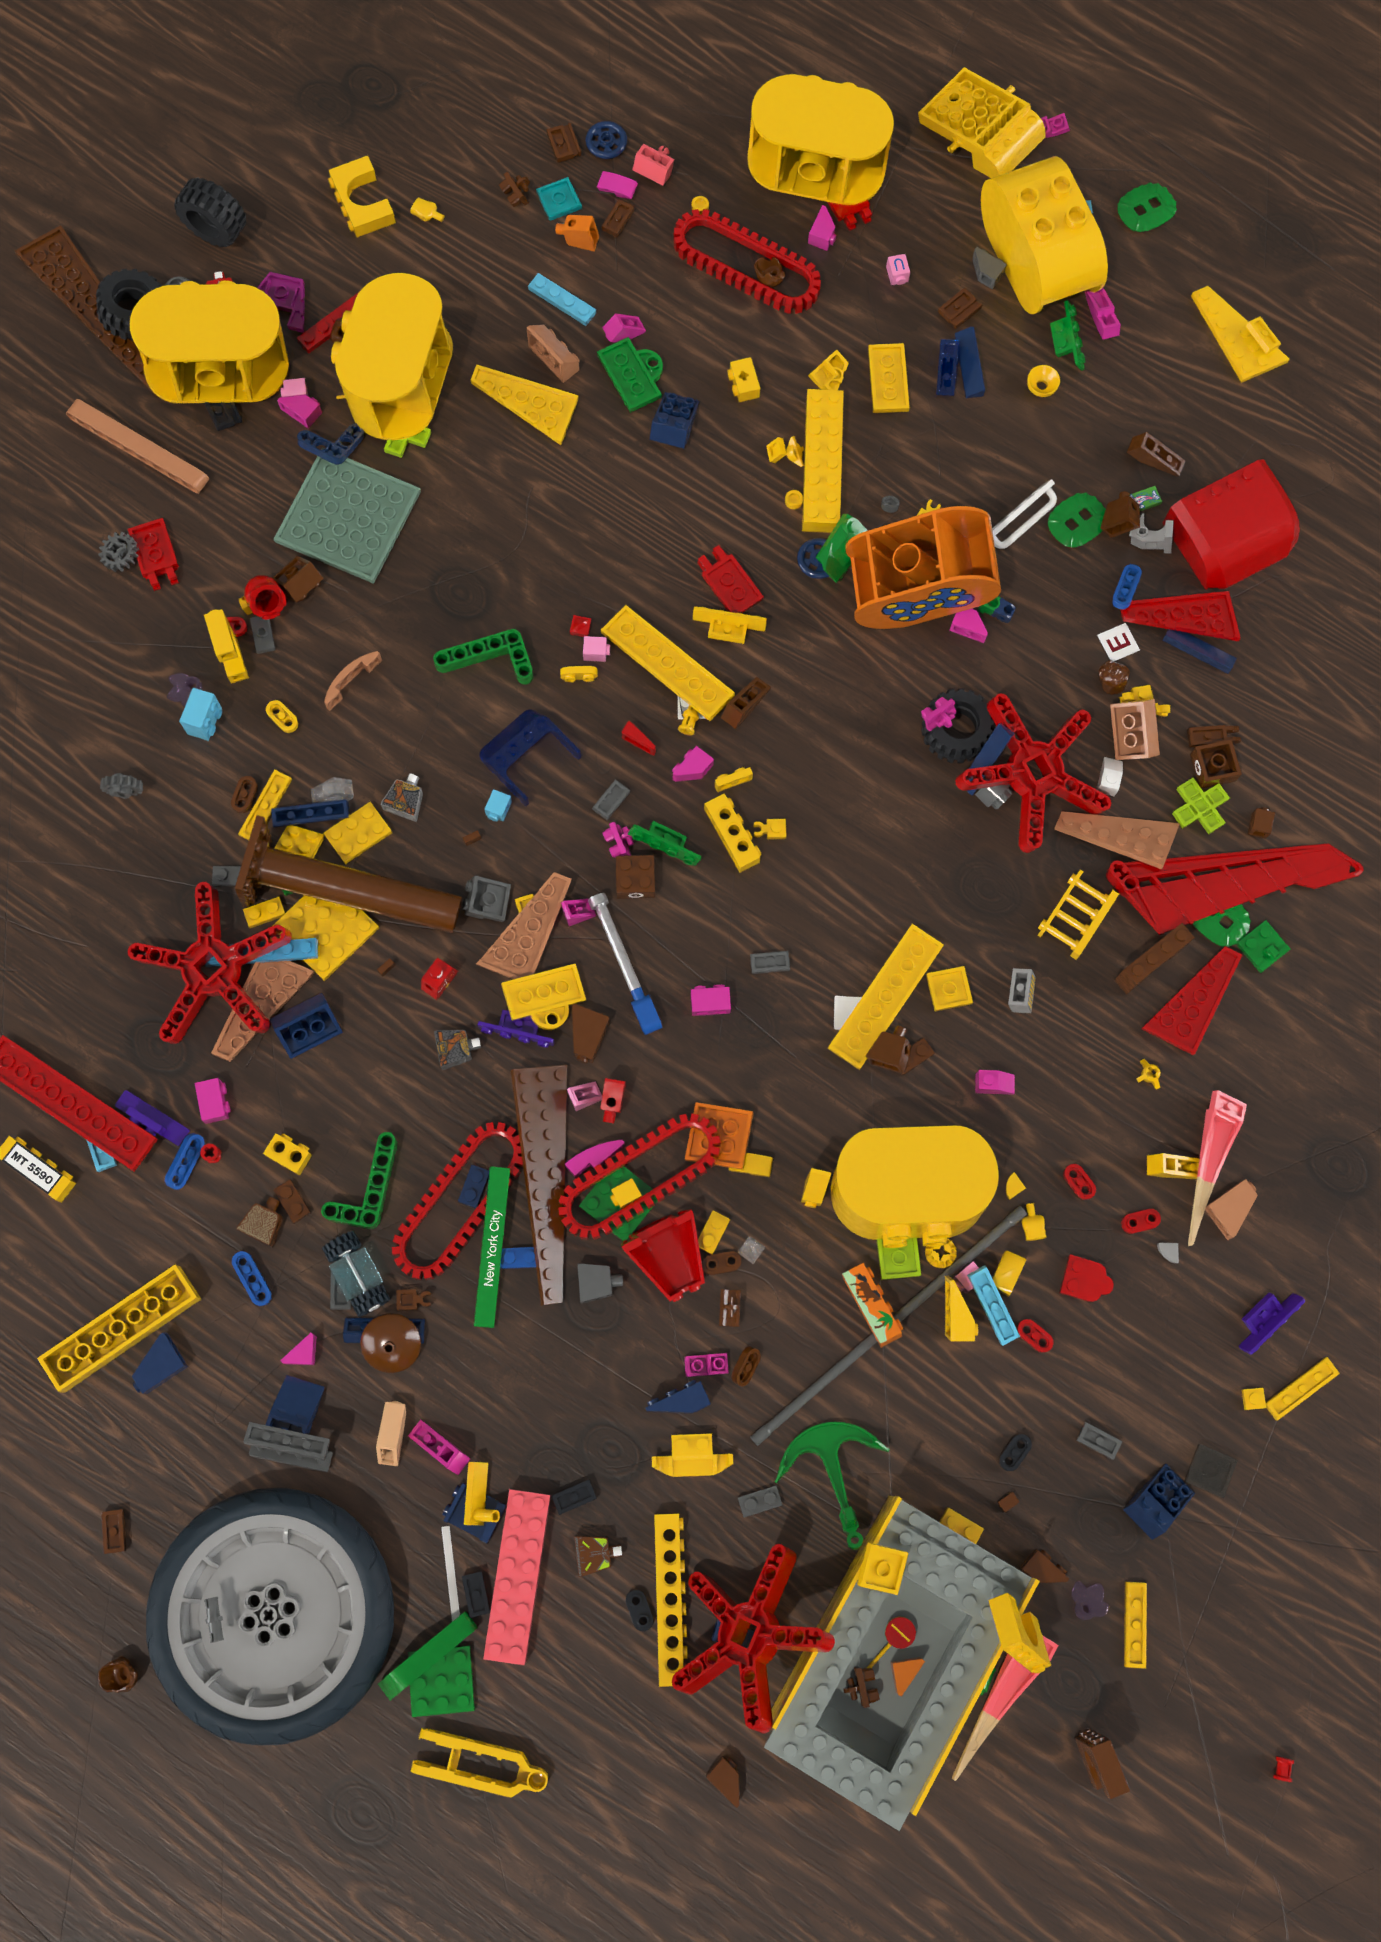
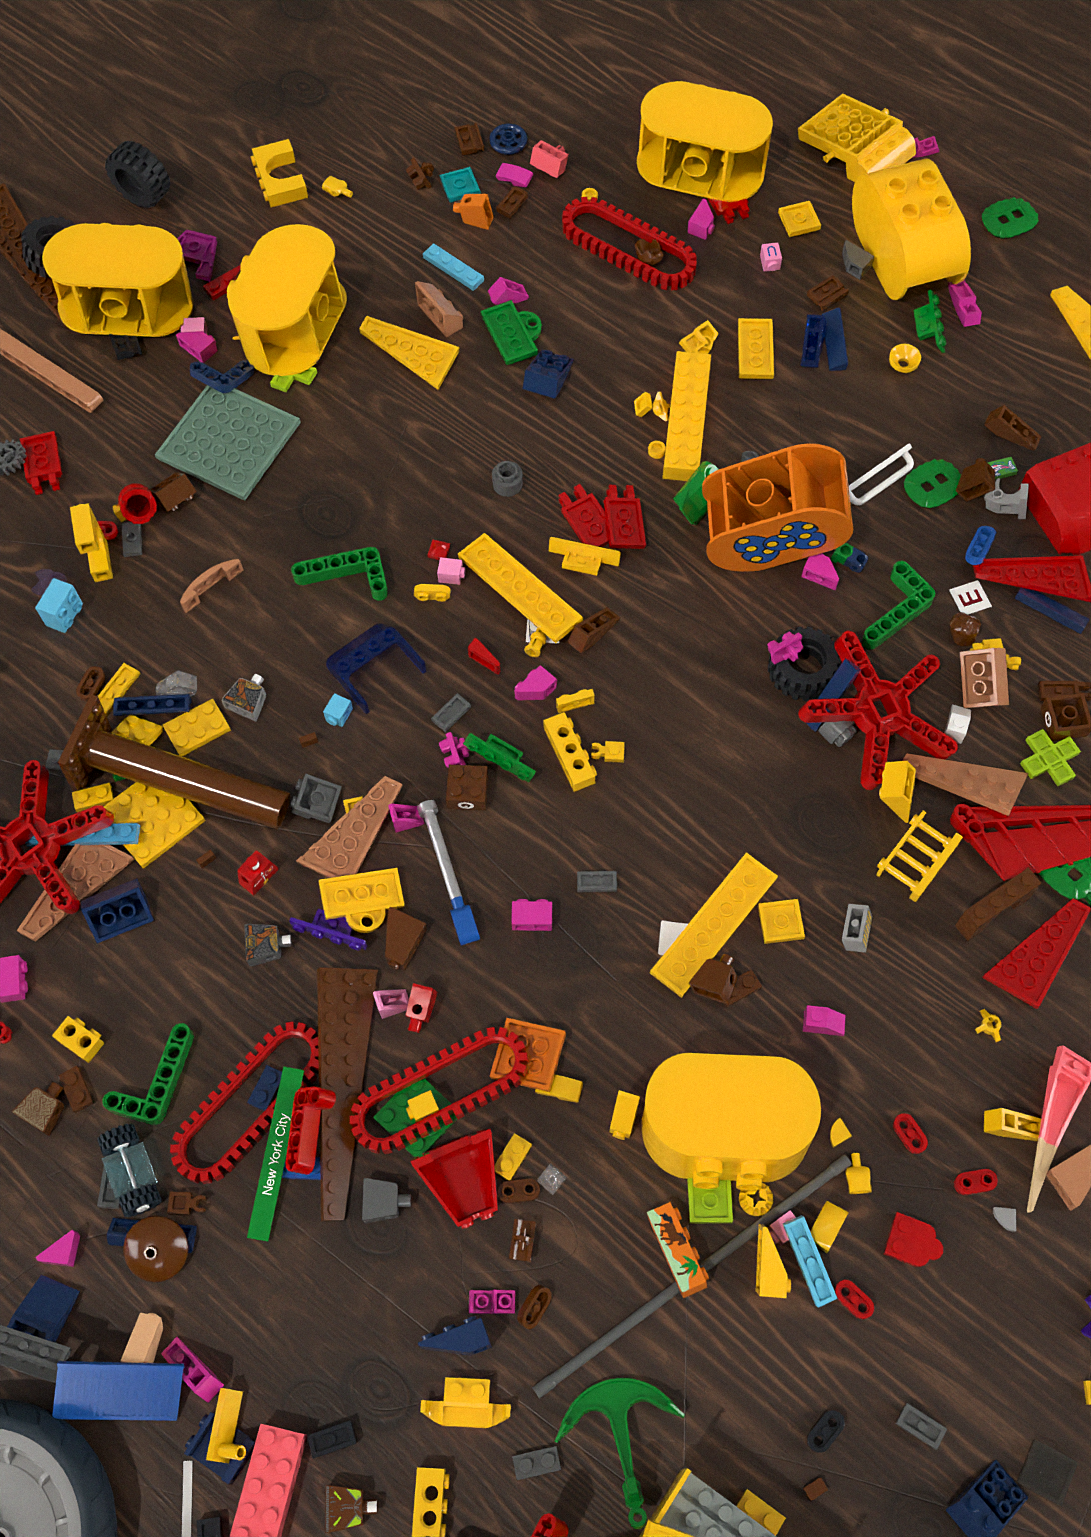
camera: 10 degrees right, 10 degrees down
(245, 1272) = (15, 1161): blue plate -> none
(283, 717) = (139, 615): yellow plate -> none
(376, 1472) = (117, 1391): none -> blue window
(517, 1221) = (305, 1127): none -> red beam
(593, 1157) = (392, 1065): dark pink slope -> none
(646, 551) = (507, 478): none -> dark grey piece
(744, 379) = (617, 342): yellow brick -> none
(766, 580) = (624, 519): none -> red tile
(804, 563) = (661, 506): dark blue plate -> none
(925, 221) = (799, 218): none -> yellow plate
(1053, 662) = (902, 610): none -> green beam
(1055, 850) = (898, 787): none -> yellow slope

